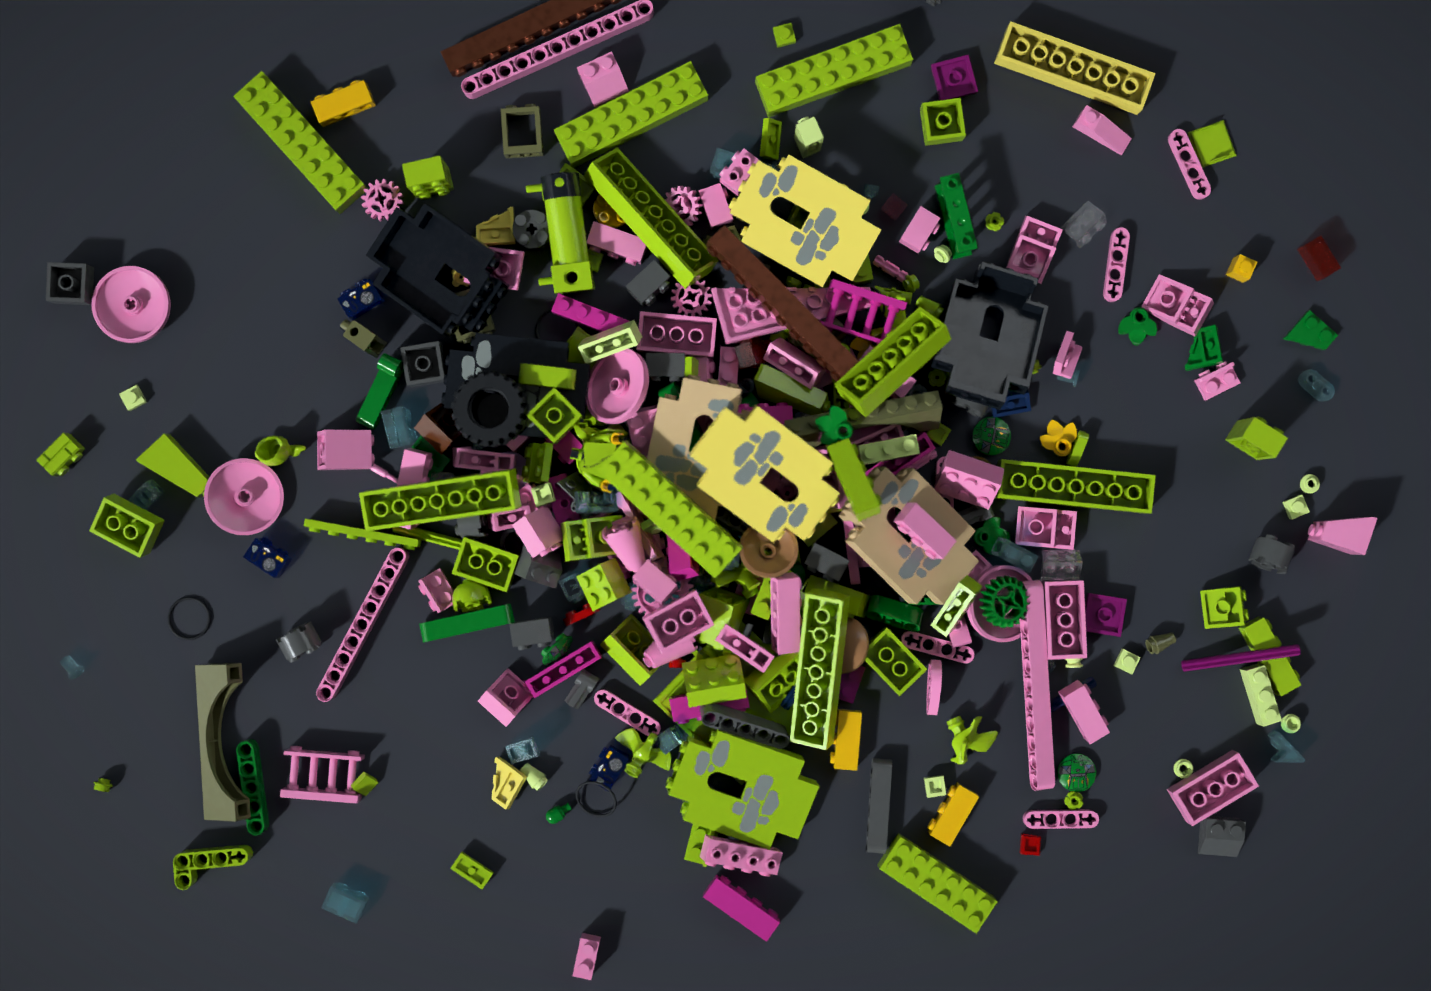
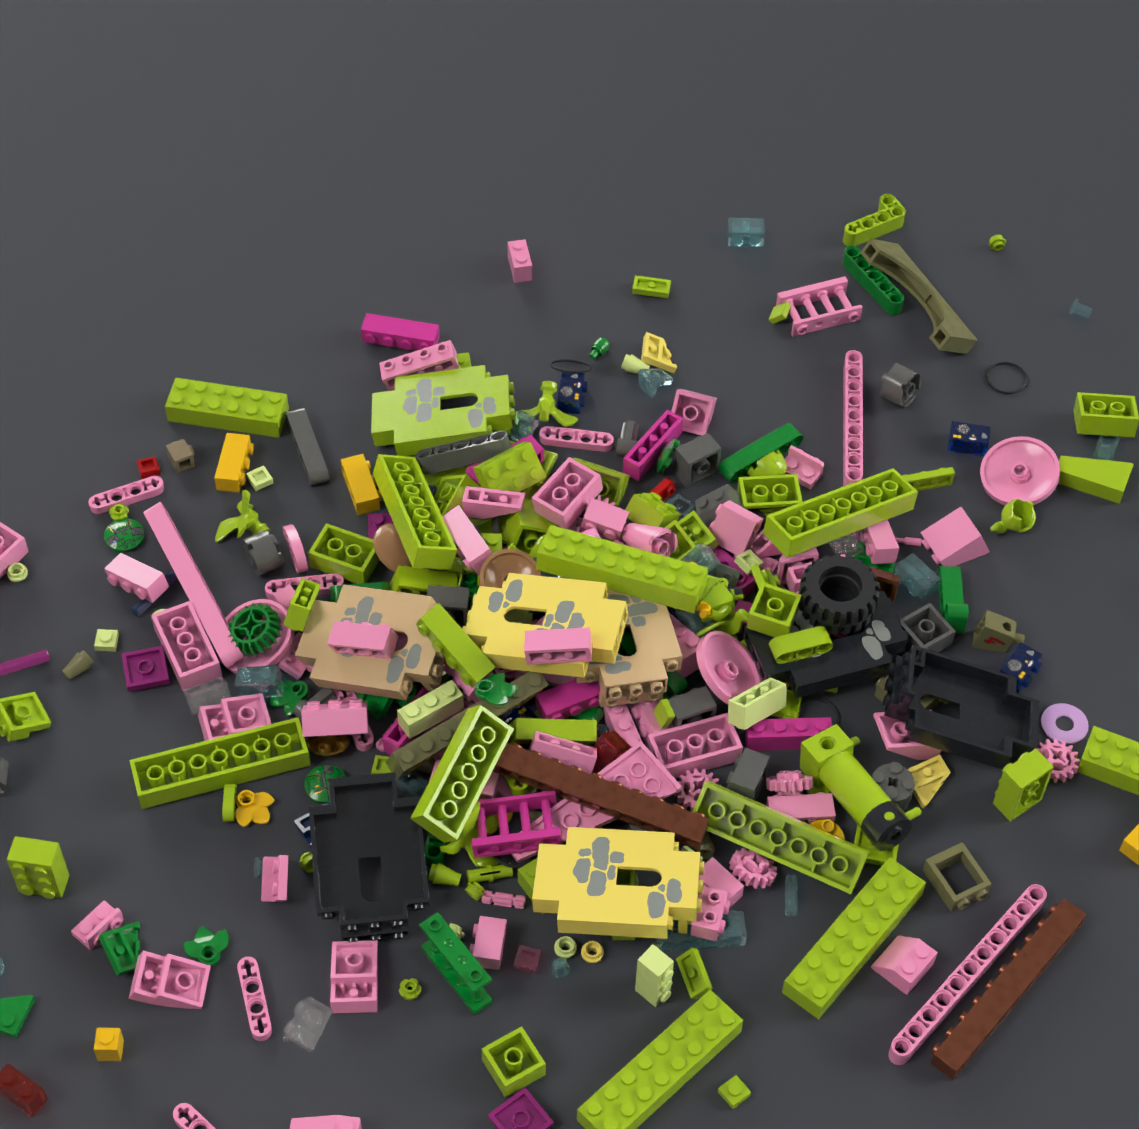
camera: 155 degrees right, 35 degrees down
(366, 236) = (1076, 715): none -> lavender gear
(614, 265) = (789, 782): none -> bright pink gear
(662, 173) = (791, 895): none -> clear light blue axle
(771, 430) = (558, 646): none -> bright pink brick
(964, 691) = (262, 552): none -> dark grey brick
(998, 843) = (180, 455): none -> dark tan brick

